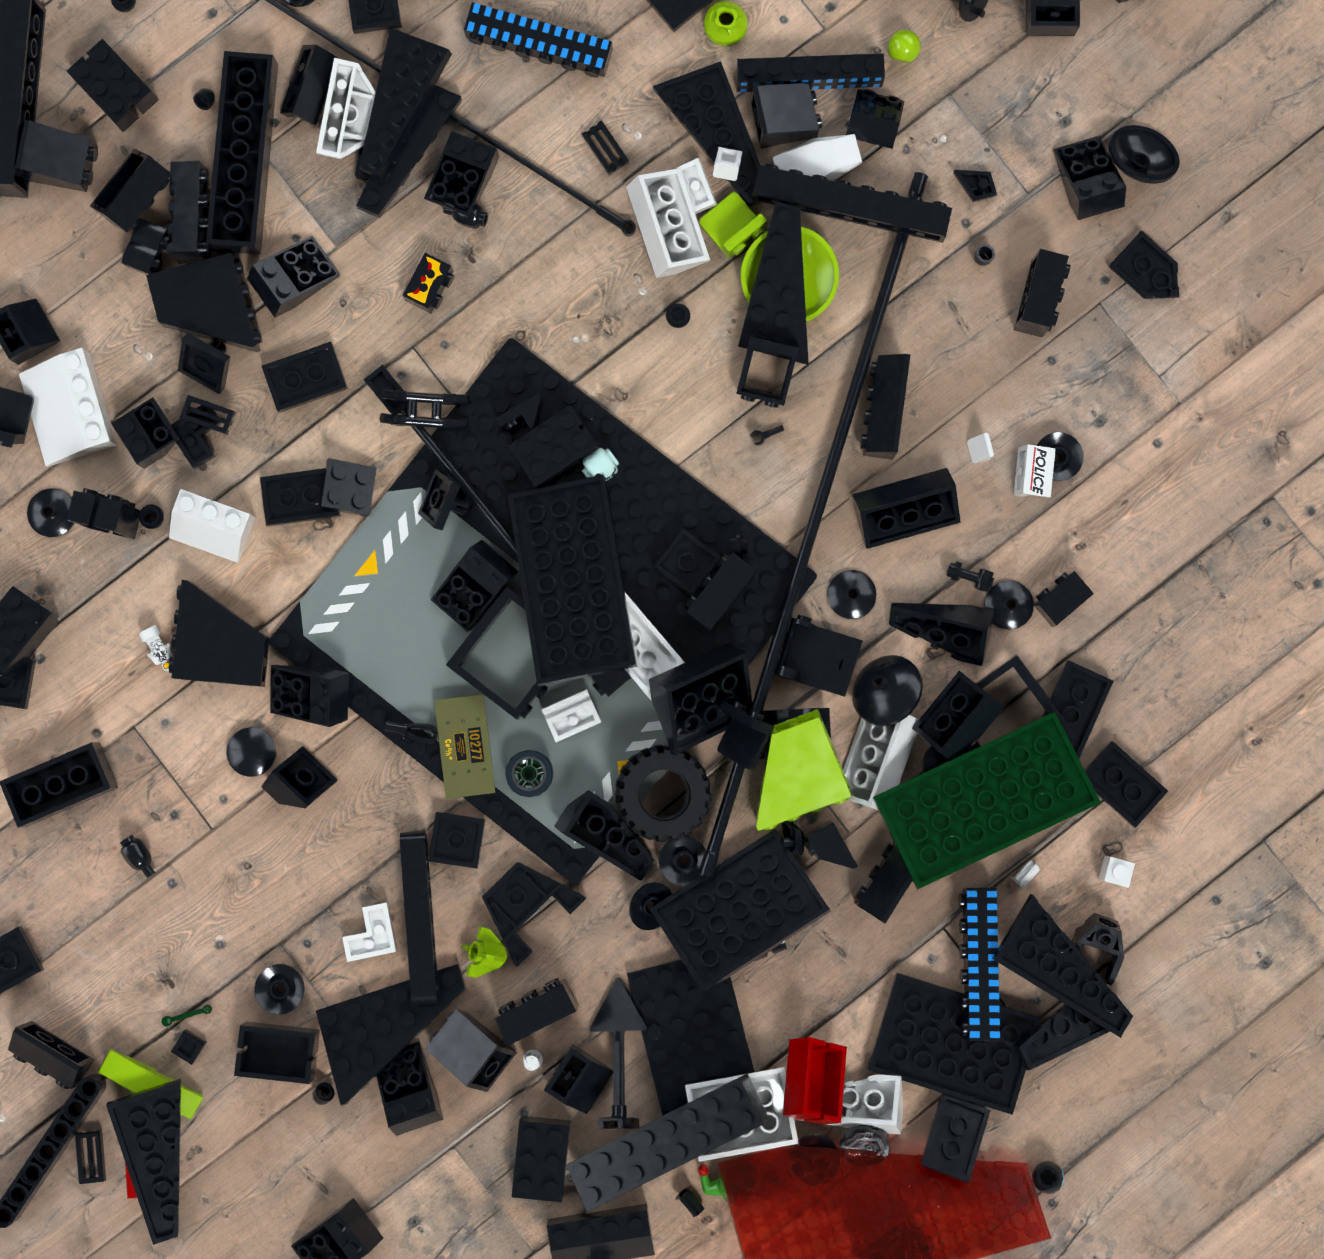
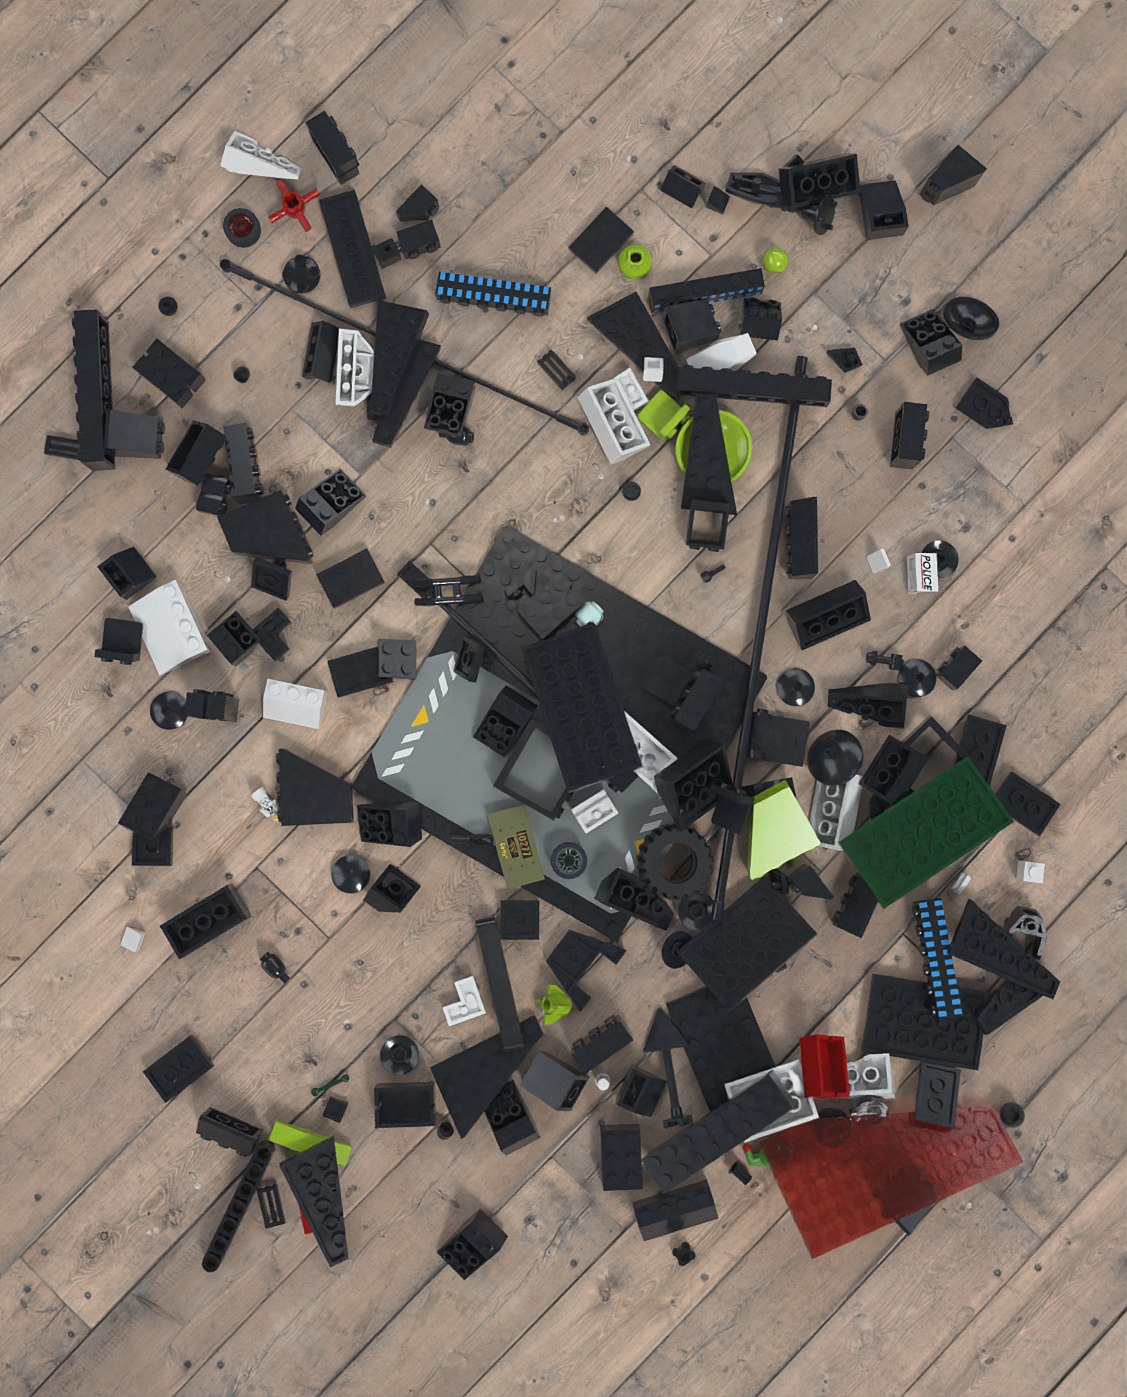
camera: 15 degrees left, 0 degrees up
(146, 511) = (241, 702): black plate -> none
(227, 422) = (296, 621): black tile -> none
(242, 152) = (277, 411): black brick -> none
(428, 283) = (436, 492): black brick -> none

